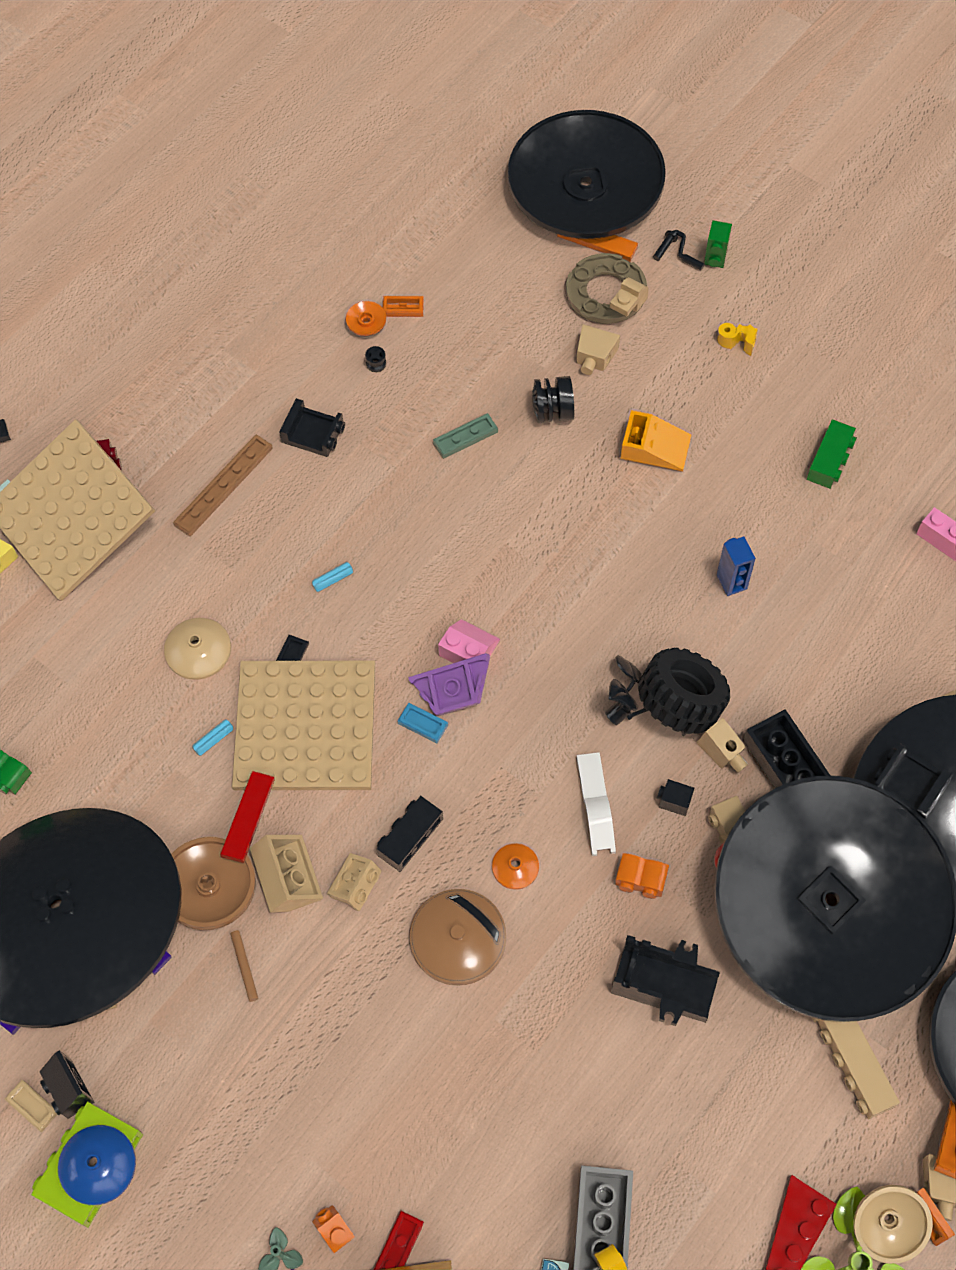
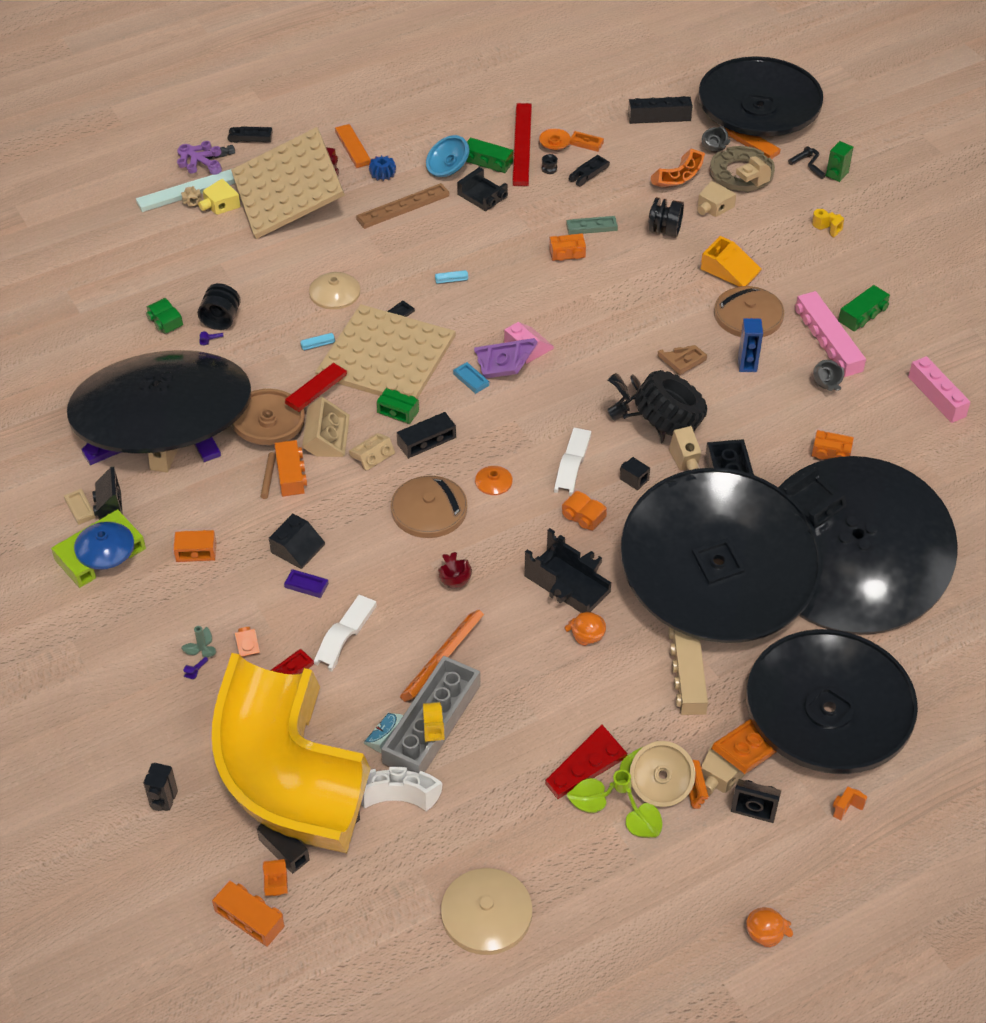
camera: 20 degrees right, 15 degrees down
(69, 736) = (219, 306): none -> black wheel
(69, 782) = (205, 337): none -> dark purple hand
(118, 410) = (353, 145): none -> orange tile
(173, 436) = (382, 167): none -> blue gear
(205, 1111) = (195, 546): none -> orange brick
(239, 392) = (447, 156): none -> dark azure dish
(269, 947) = (290, 468): none -> orange brick
(294, 371) = (489, 155): none -> green brick
(326, 1056) = (296, 541): none -> black slope
(328, 338) = (522, 144): none -> red tile
(356, 802) = (397, 405): none -> green brick
(363, 1110) = (306, 583): none -> dark purple tile
(427, 351) = (589, 170): none -> black hinge
(441, 1162) = (338, 634): none -> white piece
(453, 483) = (567, 247): none -> orange brick
(473, 230) = (660, 110): none -> black brick
(534, 1027) = (455, 572): none -> dark red hat
(541, 318) = (688, 167): none -> orange brick
(559, 256) = (715, 139): none -> dark grey hat
(571, 1155) = (445, 650): none -> orange tile
(658, 604) = (683, 358): none -> medium nougat wing
(703, 504) = (748, 303): none -> medium nougat dish
(718, 1045) = (587, 628): none -> orange hat
(809, 506) = (830, 333): none -> bright pink brick
(835, 571) = (828, 375): none -> dark grey hat
(880, 673) = (831, 445): none -> orange brick

